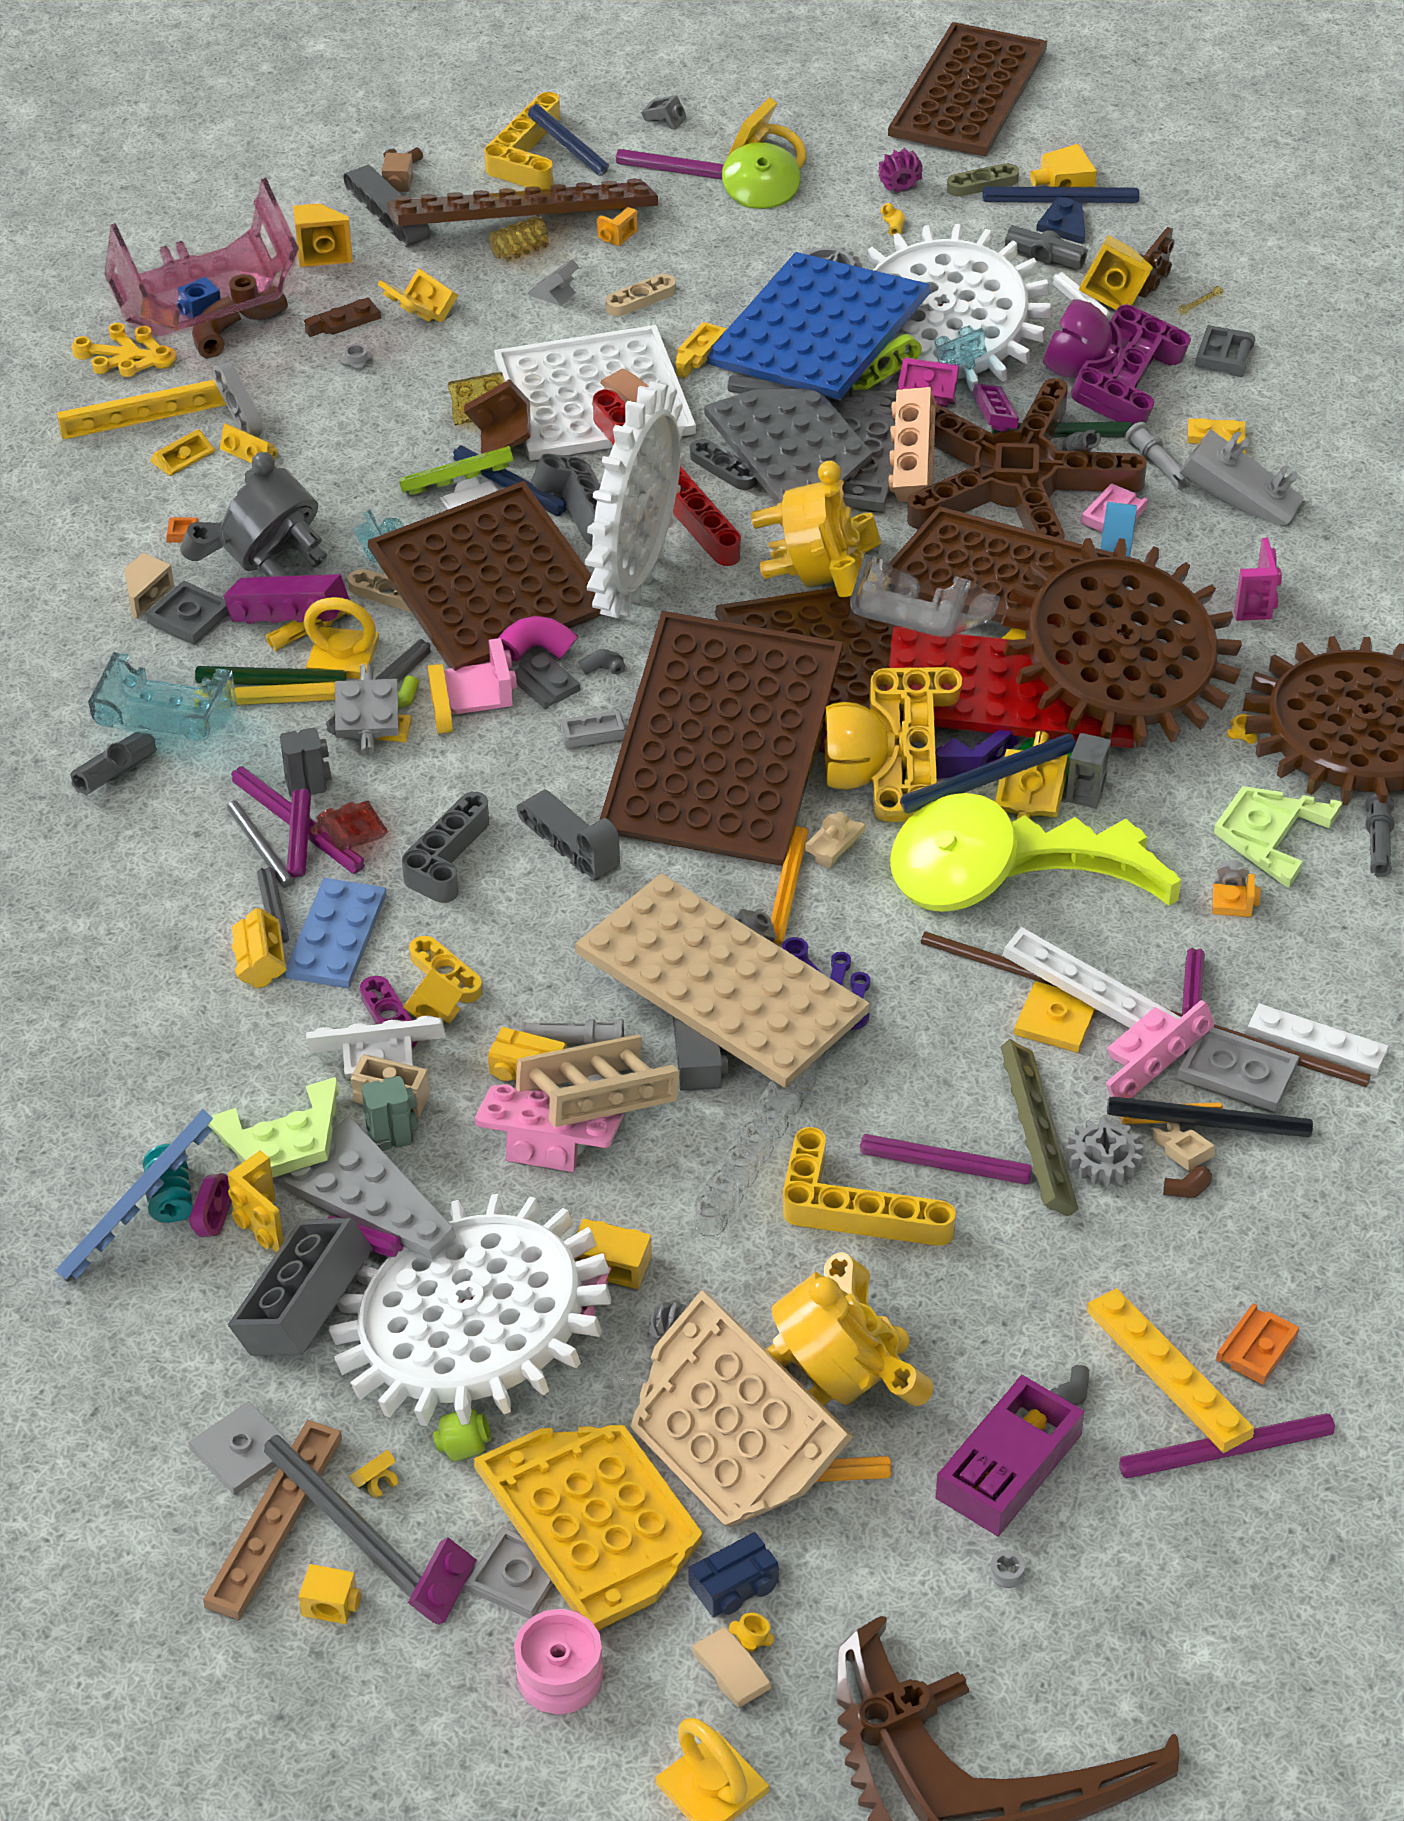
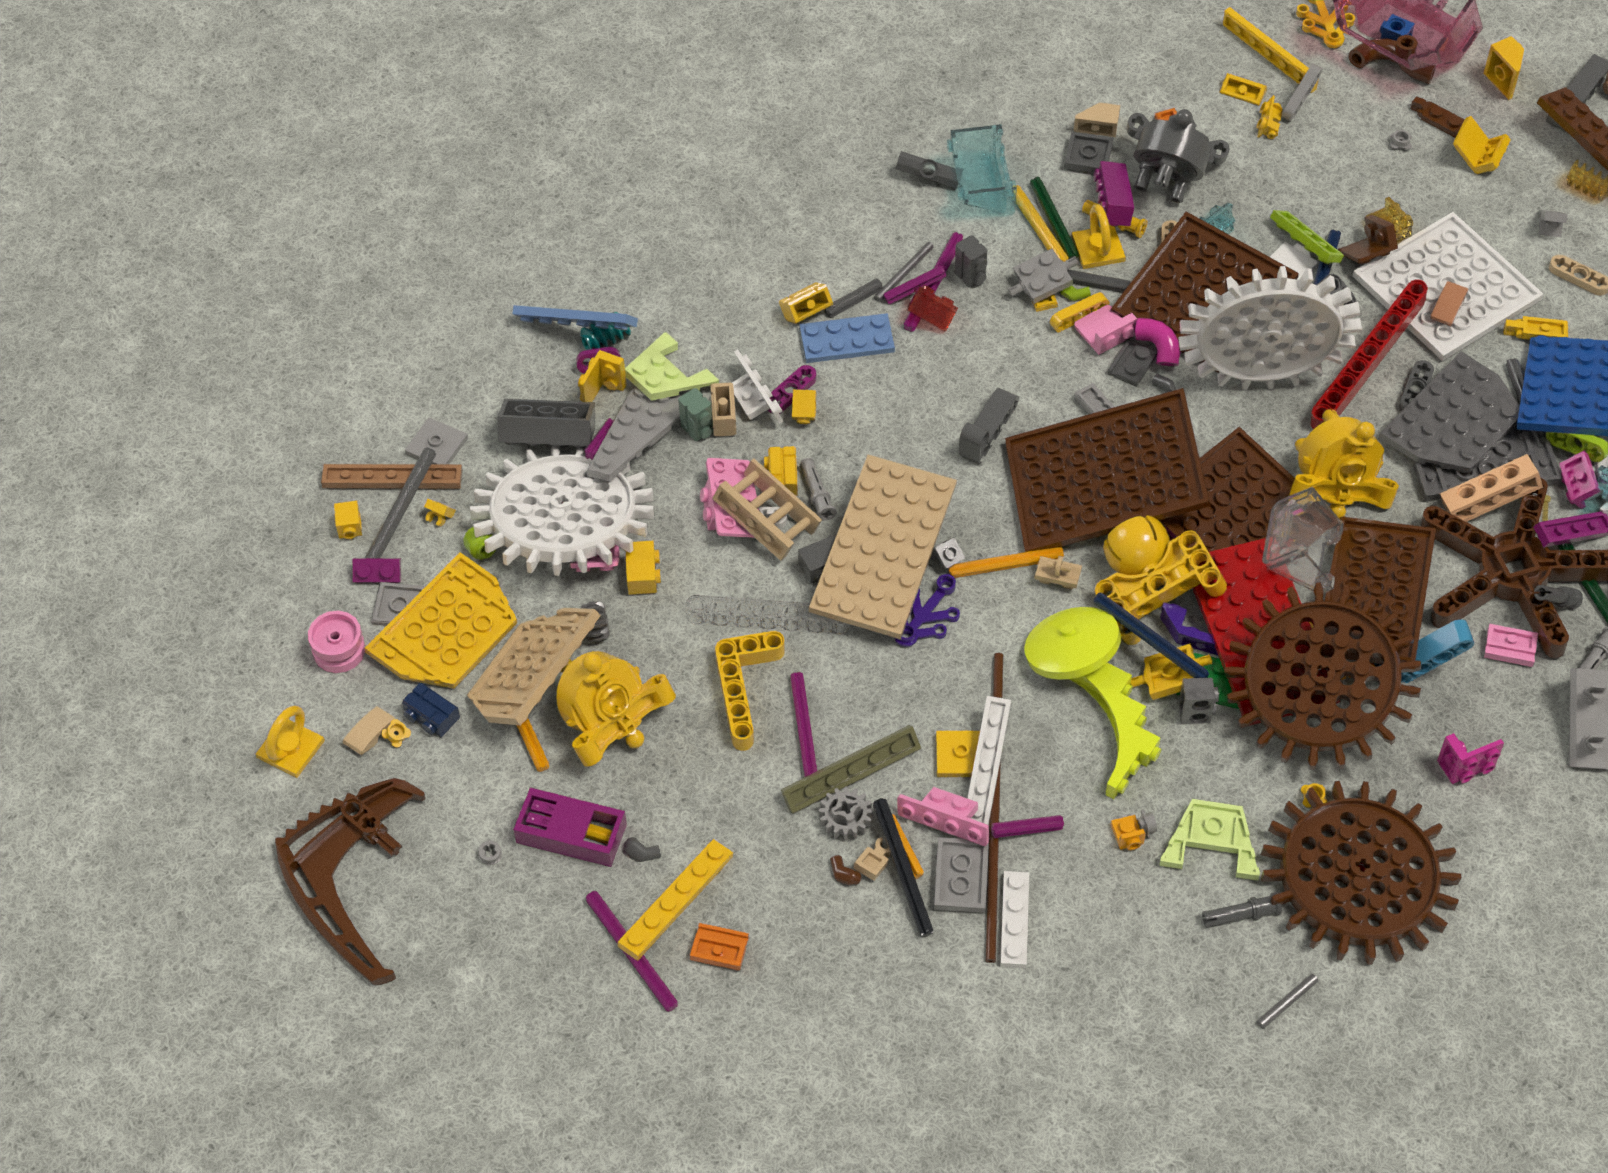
camera: 70 degrees right, 10 degrees up
(429, 860) = (944, 362): dark grey beam -> none
(443, 957) = (841, 396): yellow beam -> none

